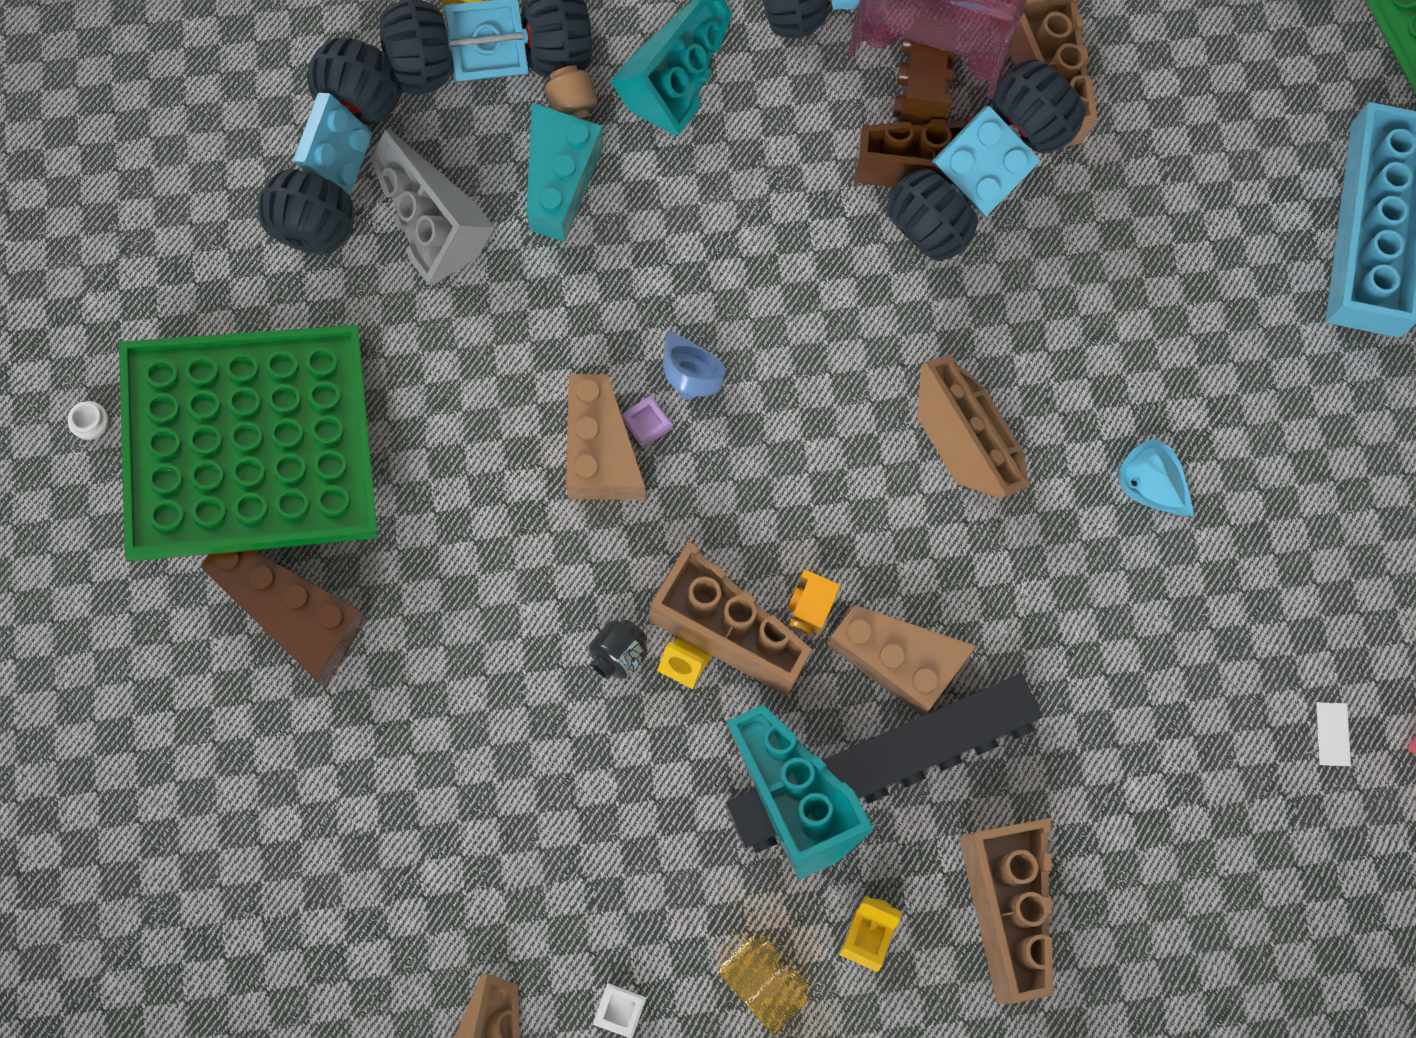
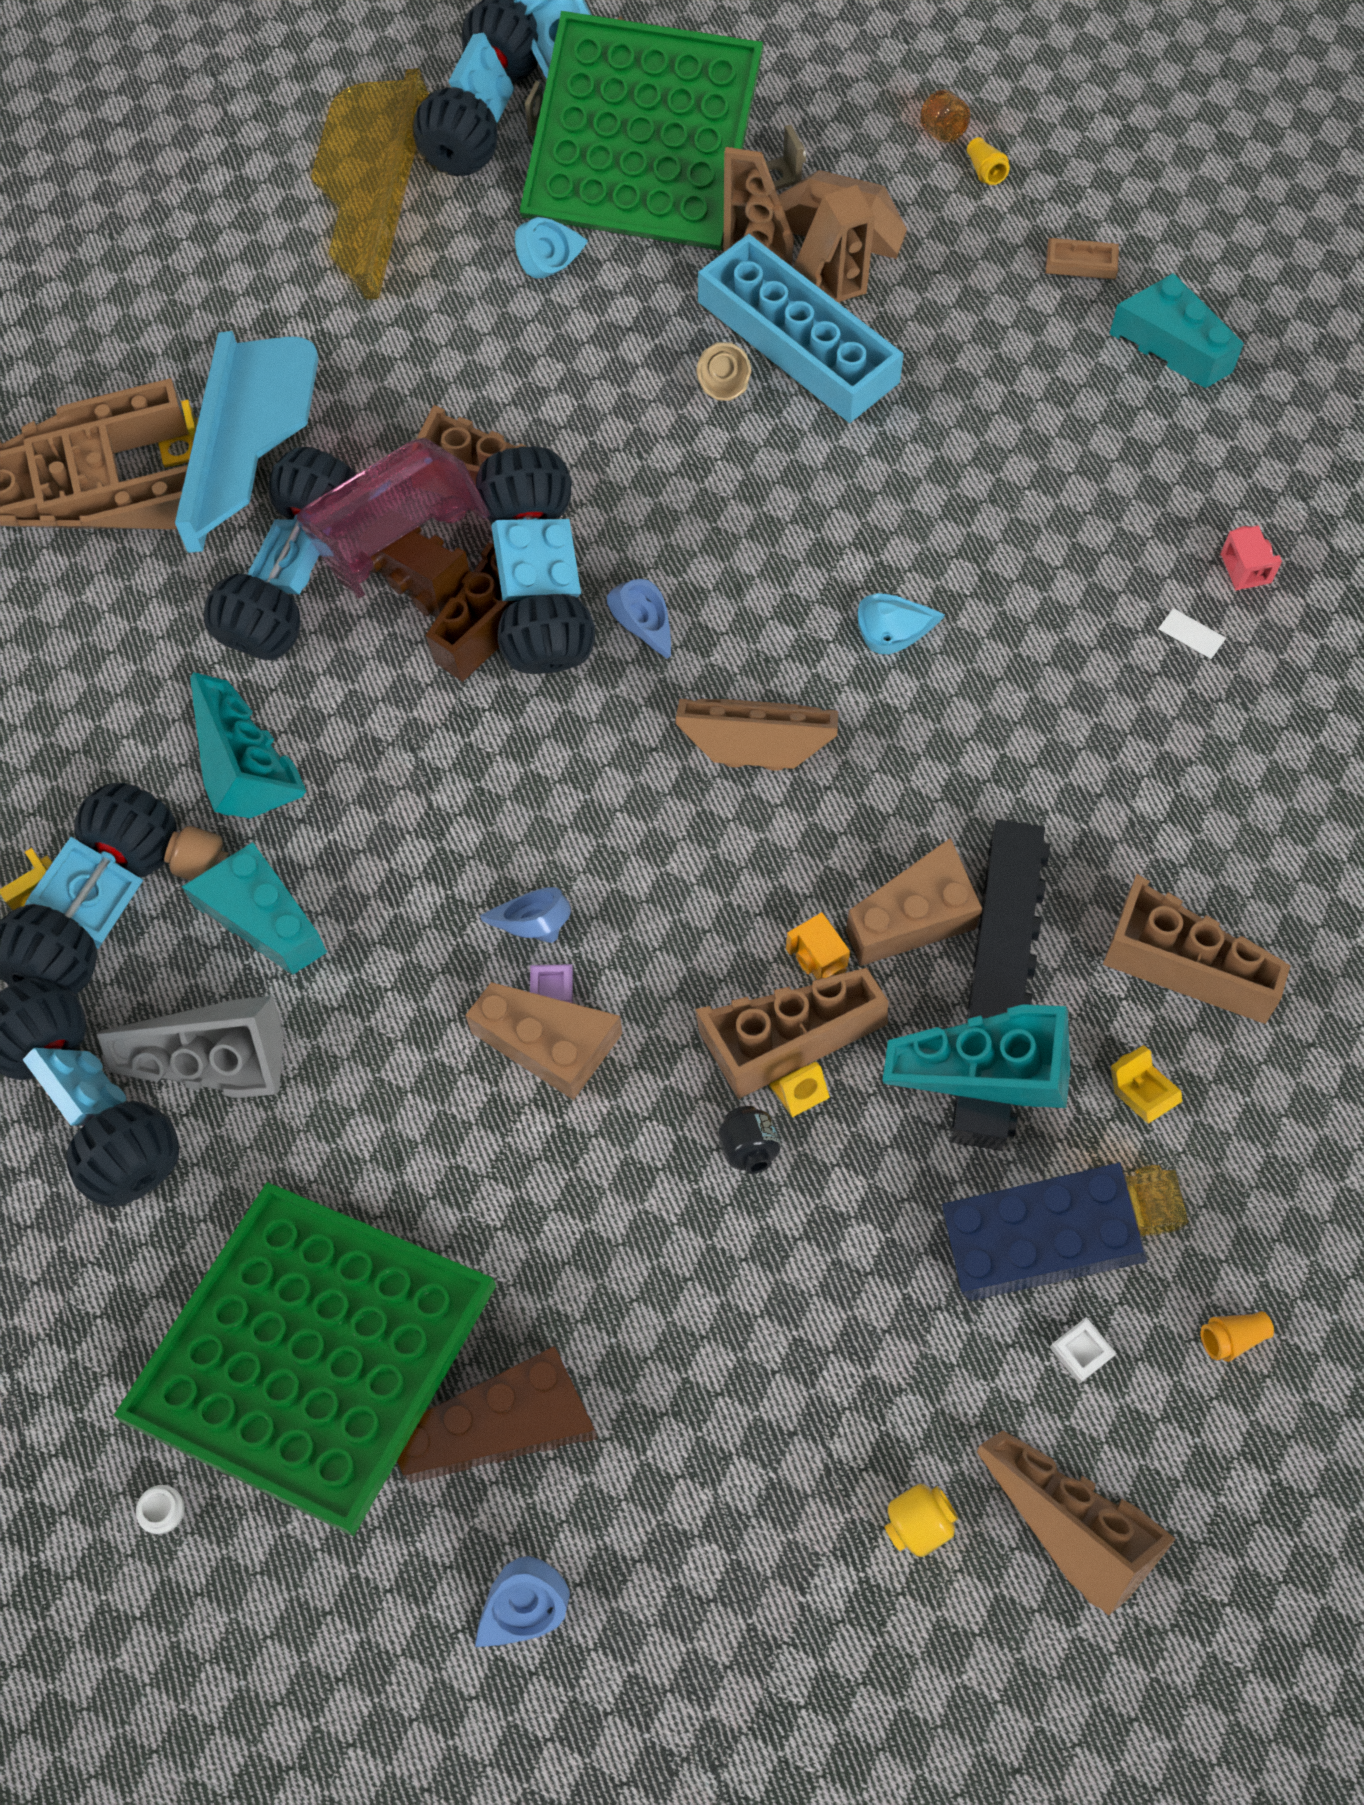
camera: 50 degrees left, 10 degrees down
(172, 711) = (521, 1603): none -> medium blue piece
(406, 962) = (921, 1520): none -> yellow head
(685, 924) = (1044, 1232): none -> dark blue brick
(1010, 275) = (643, 612): none -> medium blue piece
(1291, 188) = (723, 371): none -> tan hair

